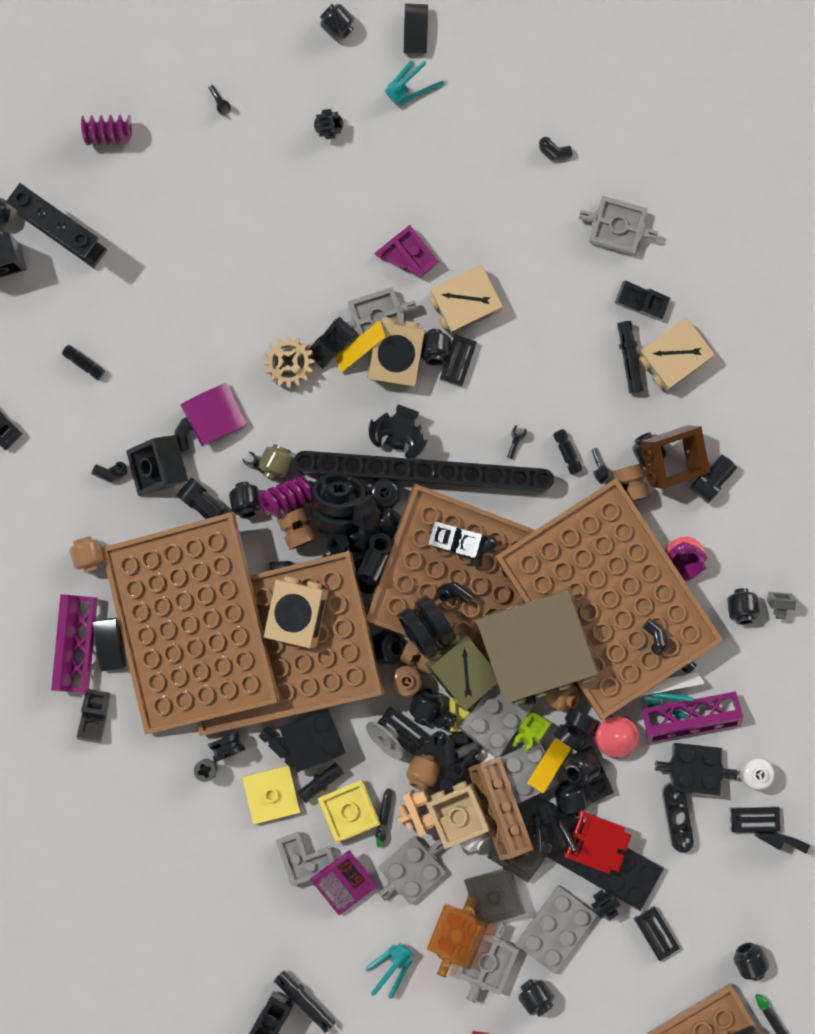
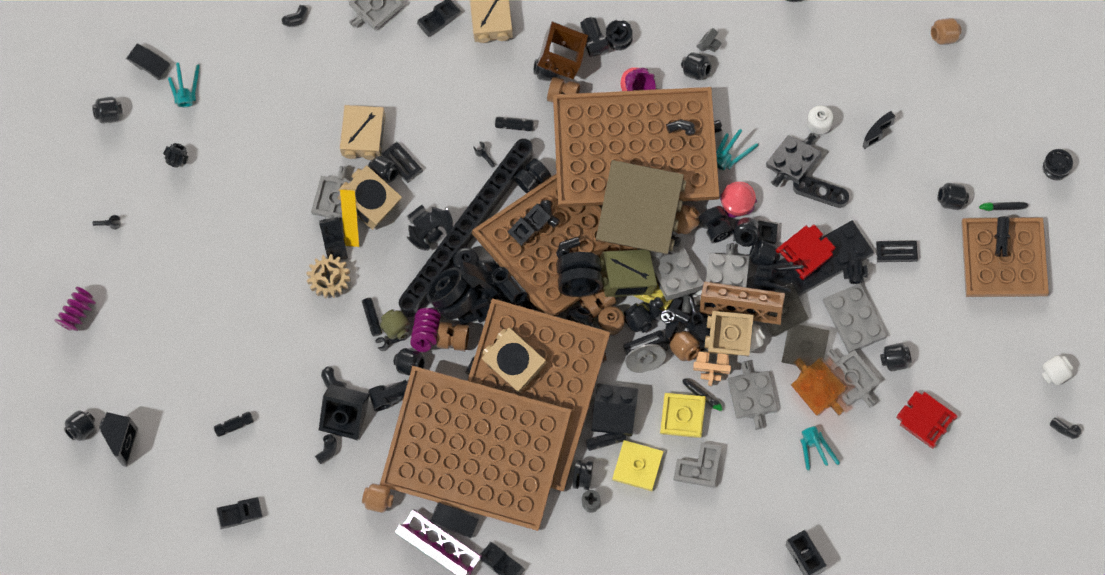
camera: 55 degrees left, 15 degrees down
(56, 225) = (123, 380): black fence -> none
(213, 414) = (332, 350): magenta slope -> none
(273, 431) = (371, 316): none -> black axle
(304, 1001) = (808, 525): black pin -> none
(308, 793) = (651, 437): black pin -> none
(344, 882) = (733, 446): magenta tile -> none
(408, 252) = (303, 152): magenta wing -> none
(517, 507) = (535, 174): none -> black wheel
(531, 730) = (699, 254): lime plate -> none
(549, 765) = (731, 253): yellow sticker -> none
(602, 472) = (544, 110): black hand -> none
(629, 352) = (473, 46): black pin -> none
(675, 683) = (723, 139): white sticker -> none
(692, 726) = (761, 143): magenta fence -> none
(732, 503) = (619, 34): none -> black wheel
(734, 819) = (845, 155): black tile -> none

